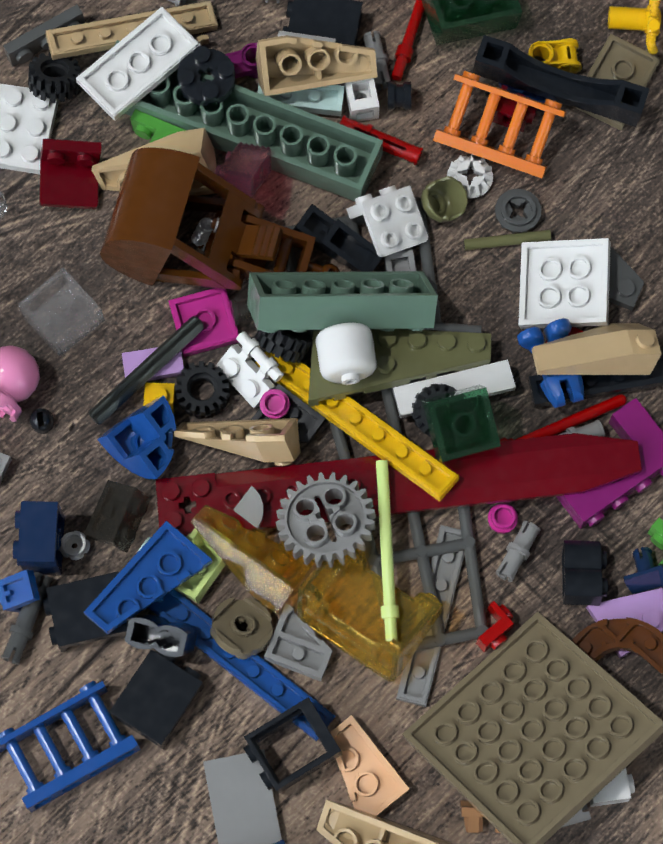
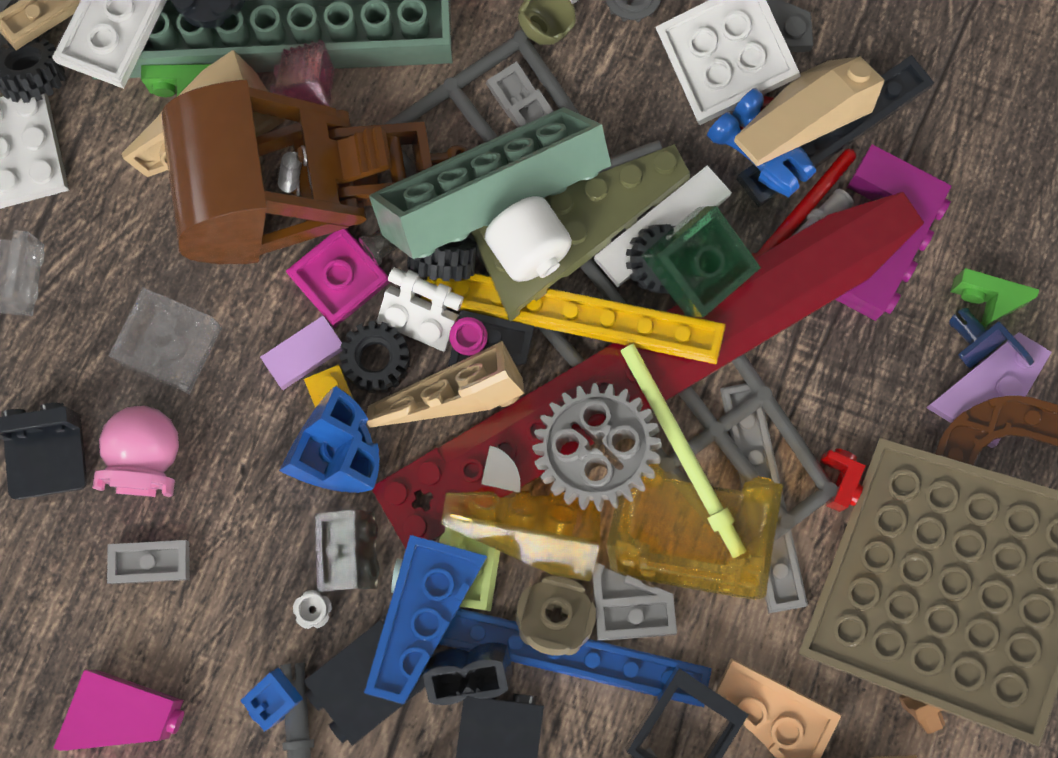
camera: 25 degrees left, 5 degrees up
(40, 537) = (266, 624): dark blue brick -> none
(47, 418) = (209, 473): black hinge -> none
(67, 174) = (97, 175): dark red bracket -> none
(146, 370) = (298, 364): pearl dark grey axle -> none
(338, 240) = (451, 114): black slope -> none
(391, 219) = (499, 63): white bracket -> none
(502, 518) = (786, 349): dark pink plate -> none
(506, 240) = (635, 33): olive bar -> none
(518, 551) = (823, 379): light grey pin -> none
(582, 573) = (909, 370): black brick -> none

